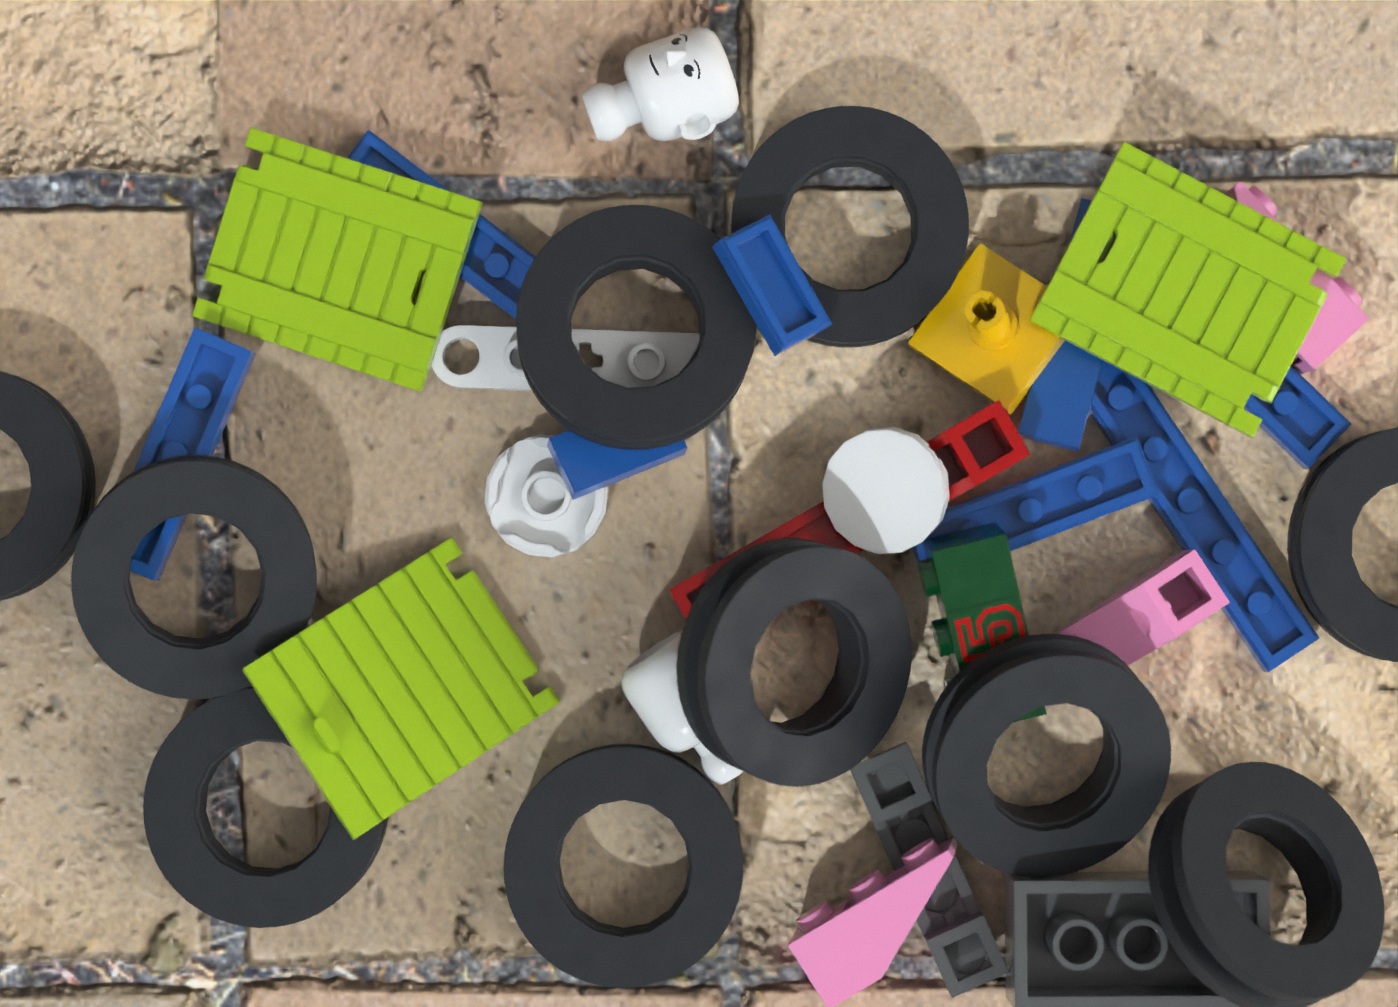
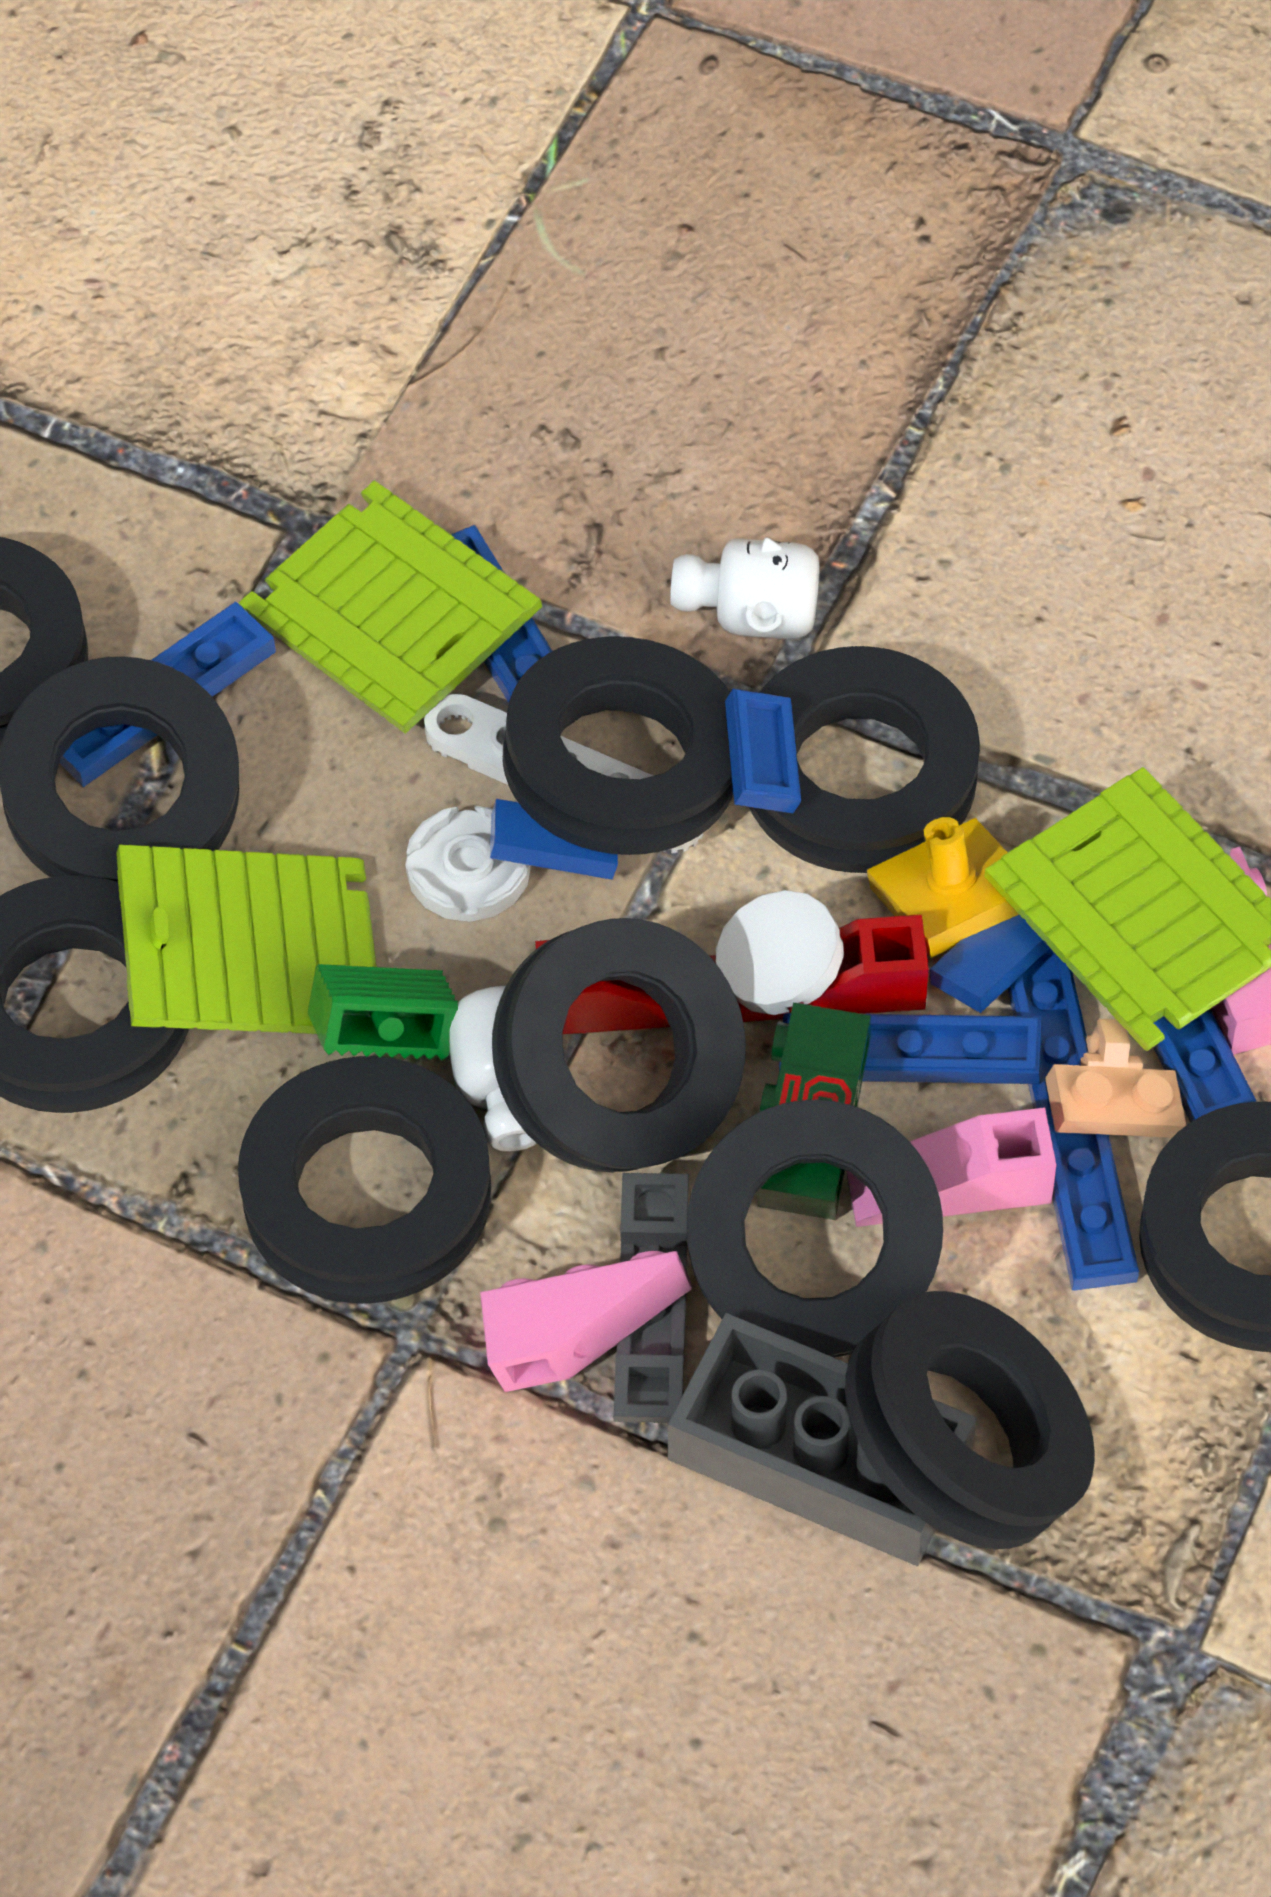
camera: 25 degrees right, 30 degrees down
(561, 710) = (382, 1010): none -> green brick
(1227, 476) = (1113, 1091): none -> light nougat hinge

